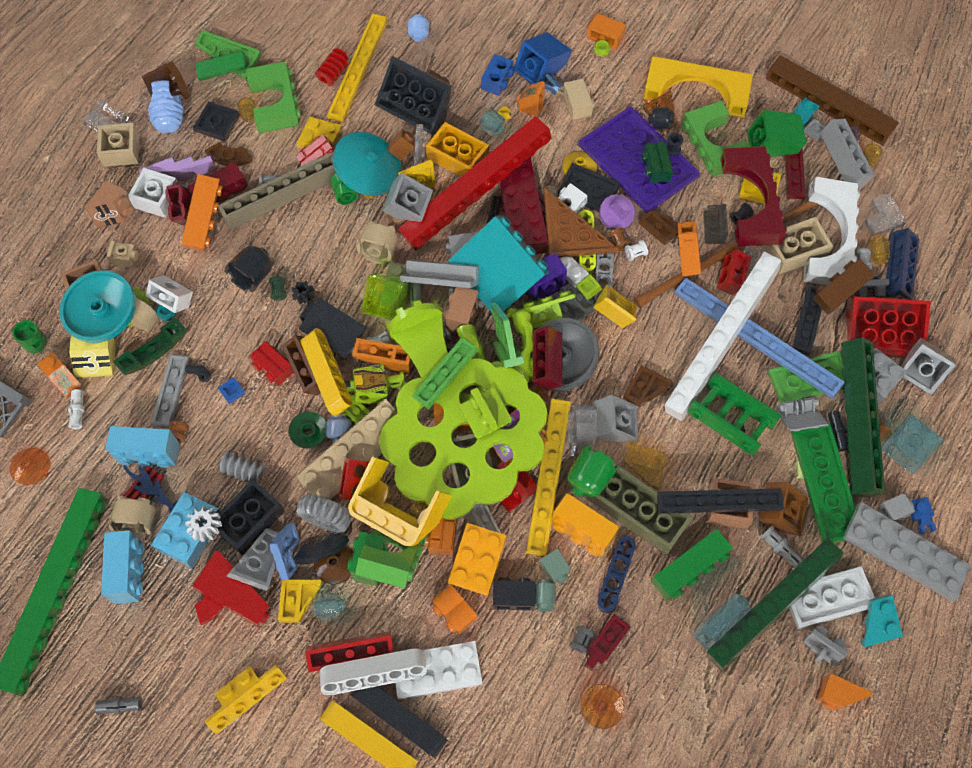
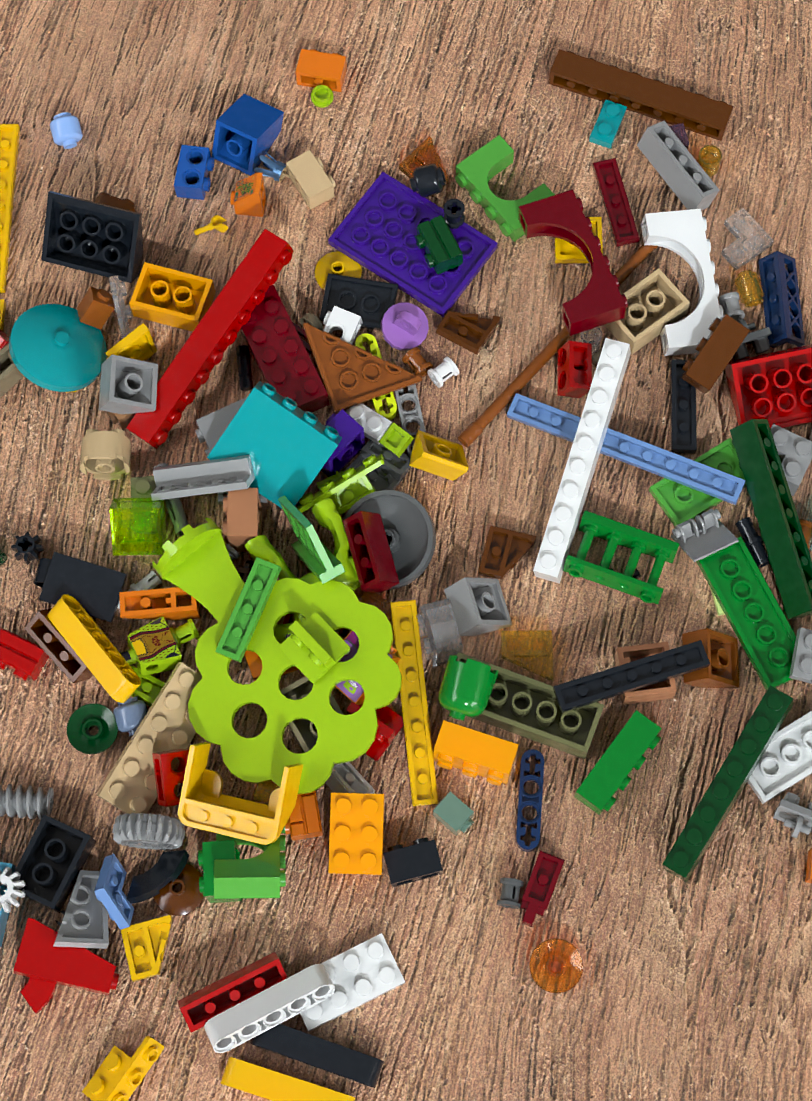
camera: 15 degrees left, 5 degrees up
(328, 606) = (188, 945): clear light blue head -> none
(343, 194) = (36, 396): green wheel -> none
(454, 610) = (345, 902): orange brick -> none
(492, 123) = (207, 243): clear light blue head -> none
(545, 596) = (451, 853): sand green brick -> none
(689, 248) = (510, 353): orange slope -> none
(715, 224) = (535, 309): clear smoke hinge -> none
(722, 621) = (671, 822): clear light blue brick -> none
(730, 84) = (506, 106): yellow arch -> none
(743, 213) = (565, 286): black bush -> none
(778, 131) = (582, 163): green slope -> none
(780, 544) = (718, 704): light grey pin -> none
(813, 129) = (628, 141): light grey tile -> none

